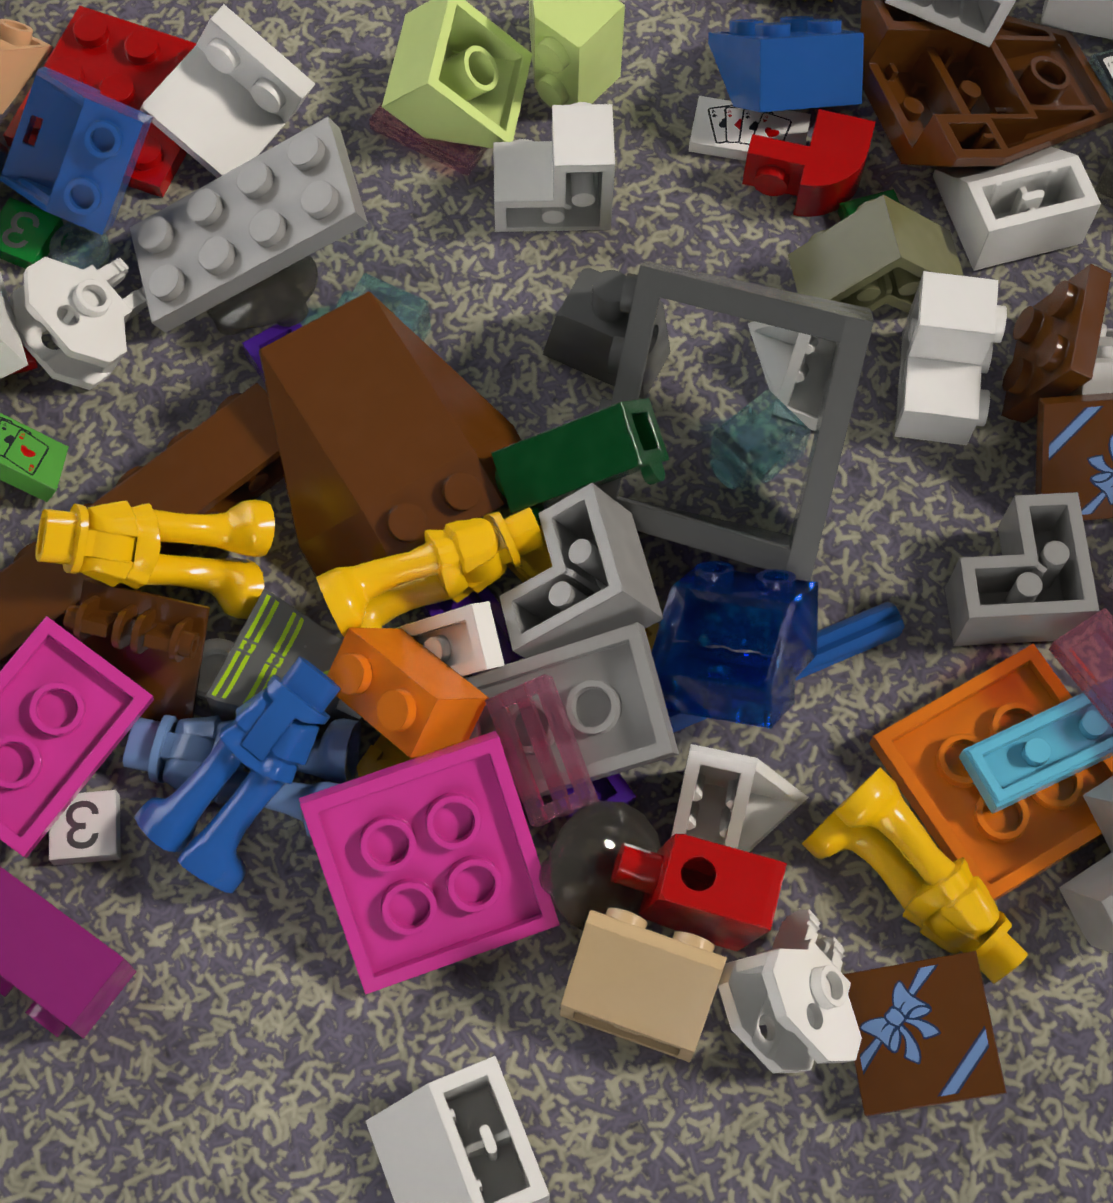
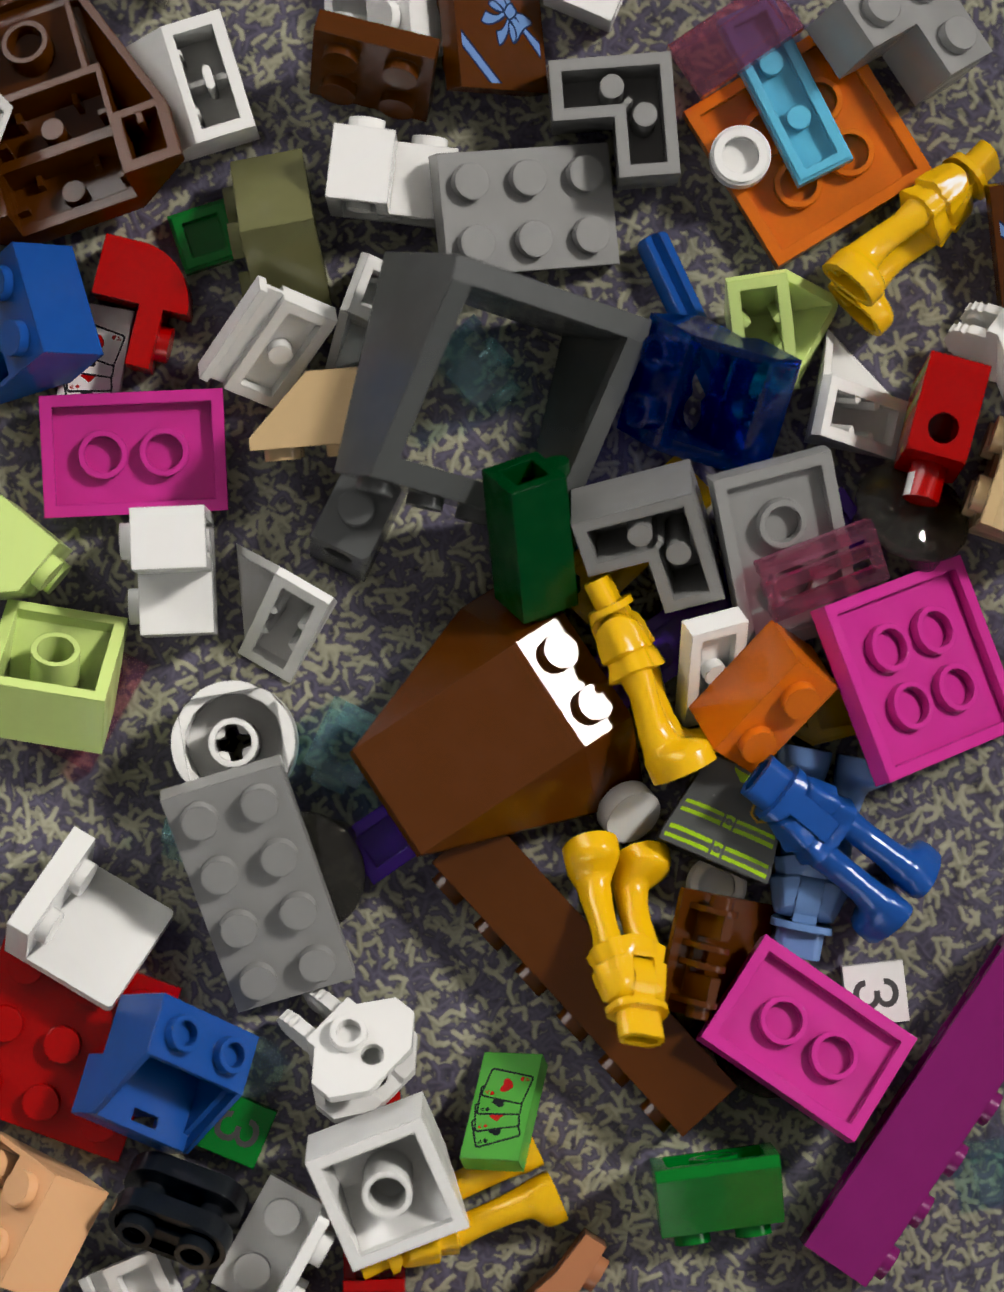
camera: 90 degrees left, 20 degrees up
(294, 574) = (628, 811): none -> white tile
(405, 224) = (227, 704): none -> white brick
(513, 277) = (278, 614): none -> white slope
(669, 155) = (132, 451): none -> dark pink plate
(704, 334) = (307, 416): none -> tan slope
(777, 246) = (267, 342): none -> white plate
(819, 736) = (780, 311): none -> yellowish green slope
(918, 482) = (527, 207): none -> light grey plate
(989, 694) = (740, 157): none -> white tile

